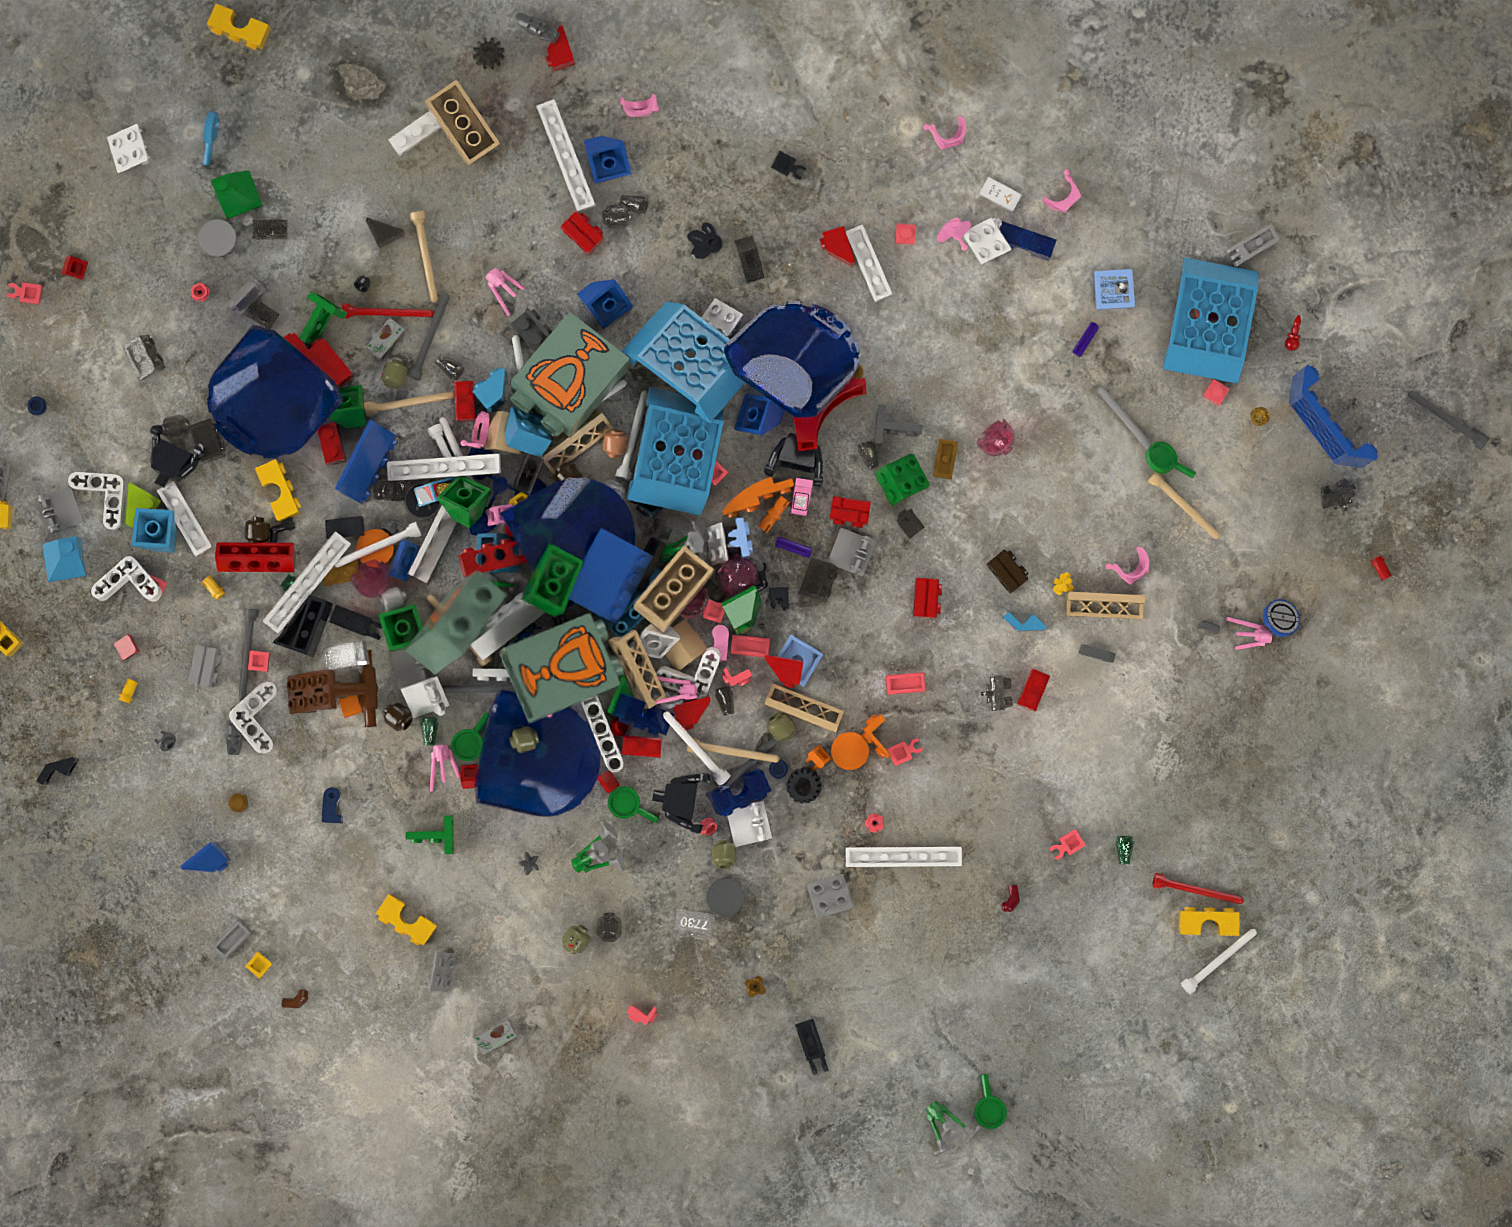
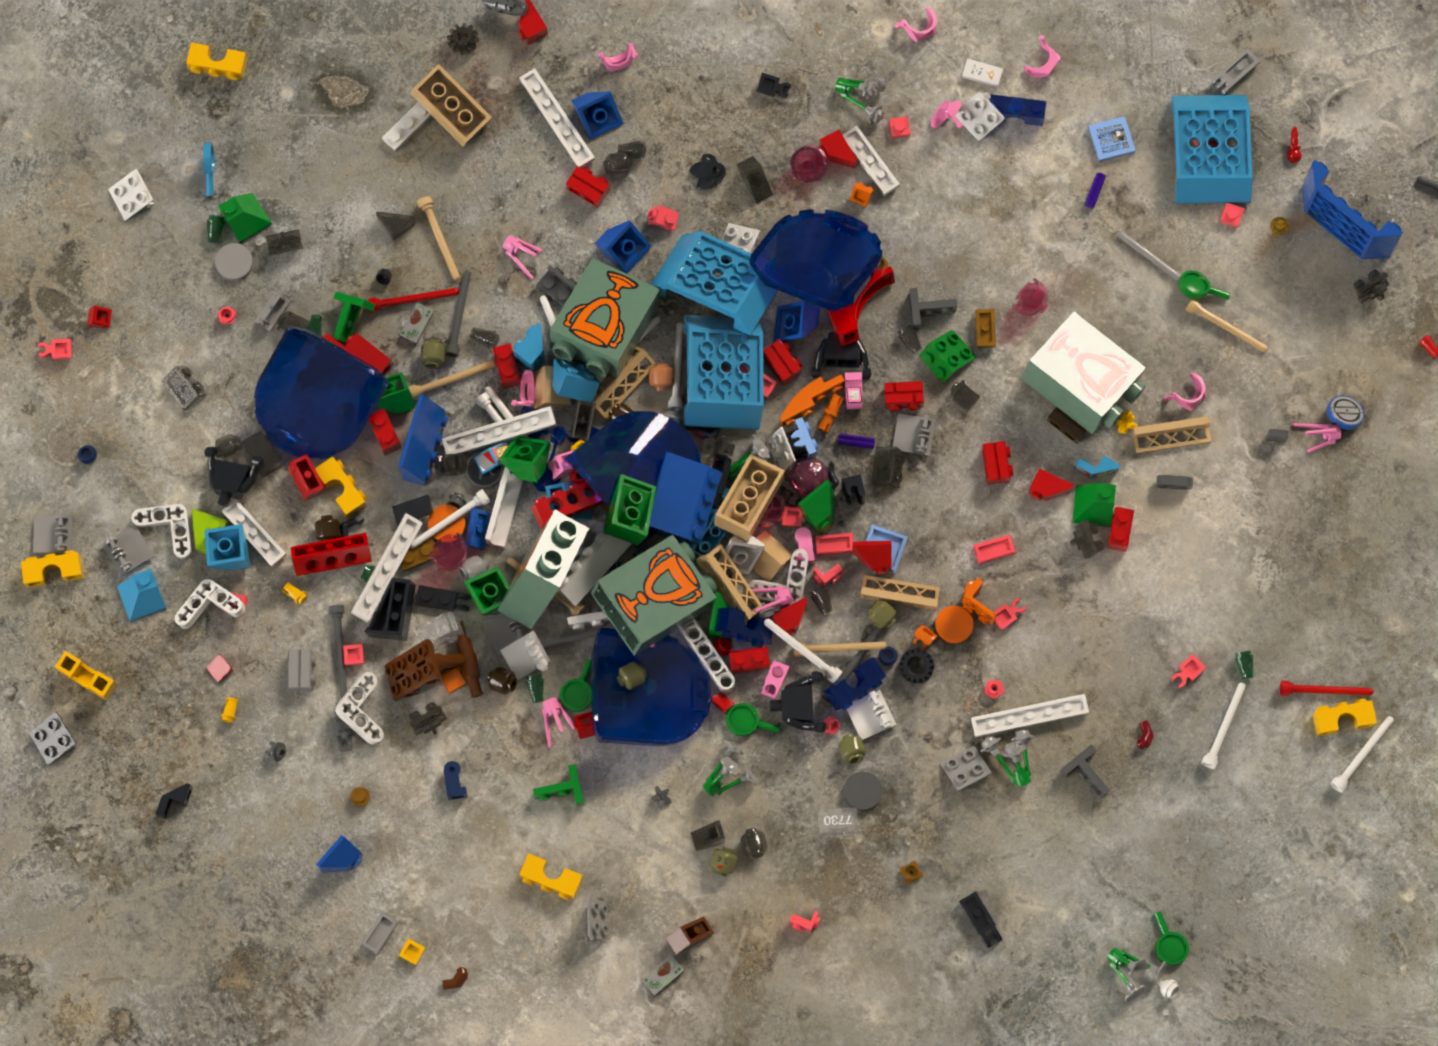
camera: 10 degrees left, 10 degrees down
(204, 200) = (215, 227): none -> clear green cone
(245, 474) = (306, 477): none -> red brick
(283, 323) = (315, 324): none -> clear green cone
(317, 743) = (428, 721): none -> clear smoke hips
(529, 1004) = (689, 935): none -> reddish brown slope
(566, 911) = (708, 836): none -> clear smoke slope
(650, 280) = (663, 217): none -> coral bracket
(663, 770) = (775, 679): none -> bright pink leg
(737, 453) = (782, 362): none -> red brick
(806, 255) = (809, 163): none -> clear pink cylinder
(852, 296) = (861, 194): none -> orange tile
(877, 893) = (1012, 750): none -> light grey plant
(882, 193) = (870, 88): none -> light grey plant
(945, 923) = (1086, 772): none -> dark grey bracket
(971, 632) = (1048, 486): none -> red slope
(978, 1150) = (1169, 988): none -> white plate
(1013, 659) = (1094, 503): none -> green slope
(1032, 530) = (1085, 374): none -> brick
(1070, 935) = (1210, 760): none -> white piece

